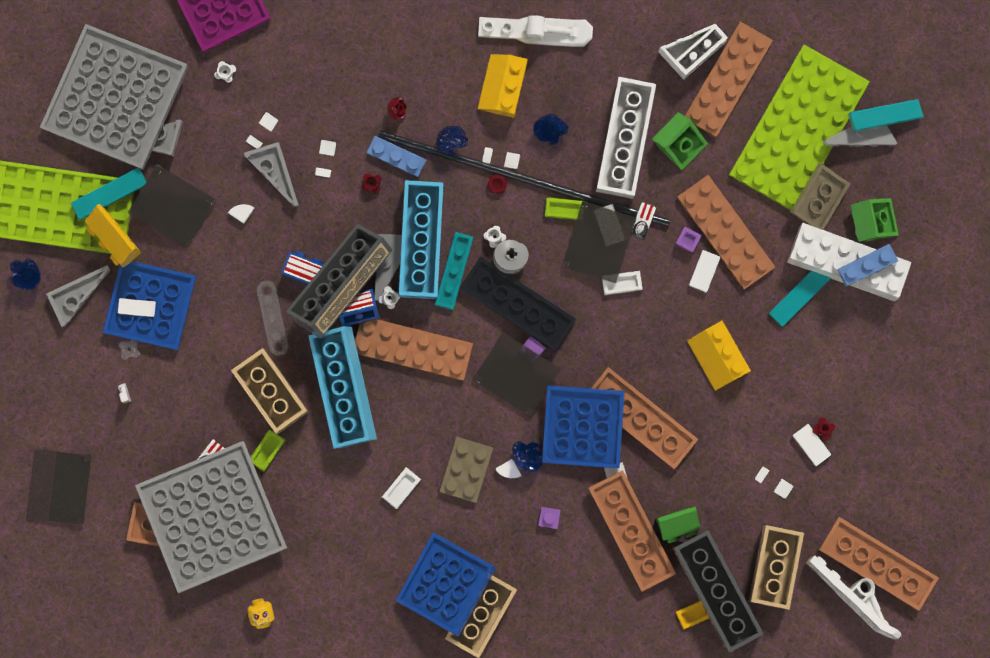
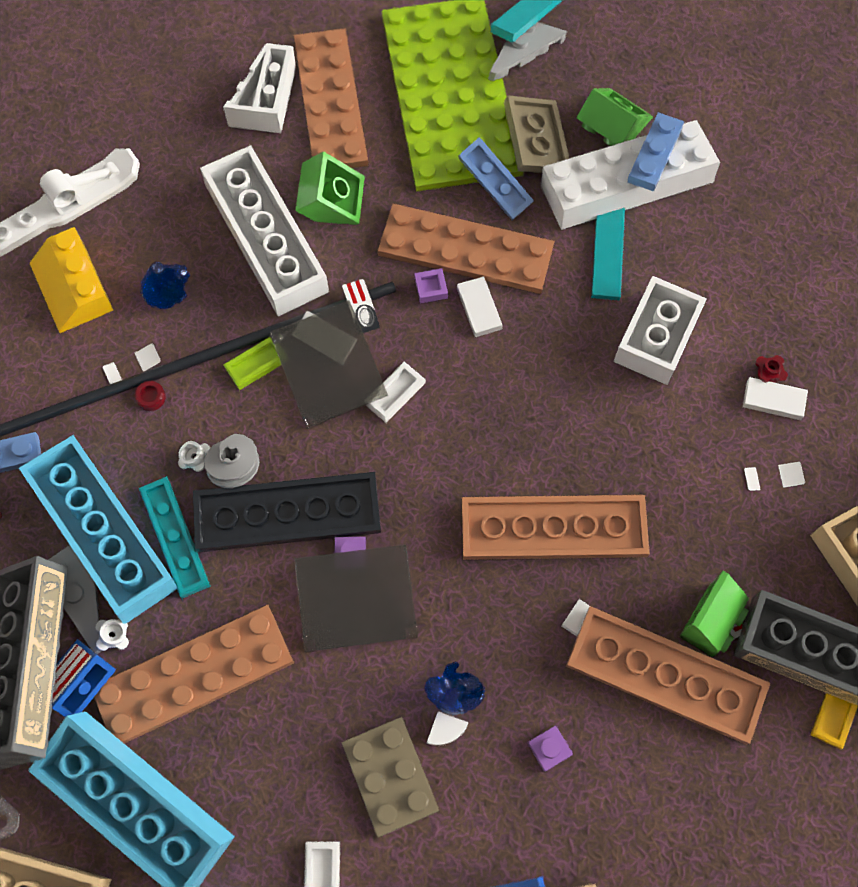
camera: 40 degrees left, 15 degrees down
(451, 138) = (45, 383): clear blue hair -> none
(583, 426) = (494, 593): blue plate -> none
(718, 355) = (580, 381): yellow slope -> none
(773, 206) = (495, 178): none -> medium blue plate
(783, 362) = (659, 330): none -> white brick

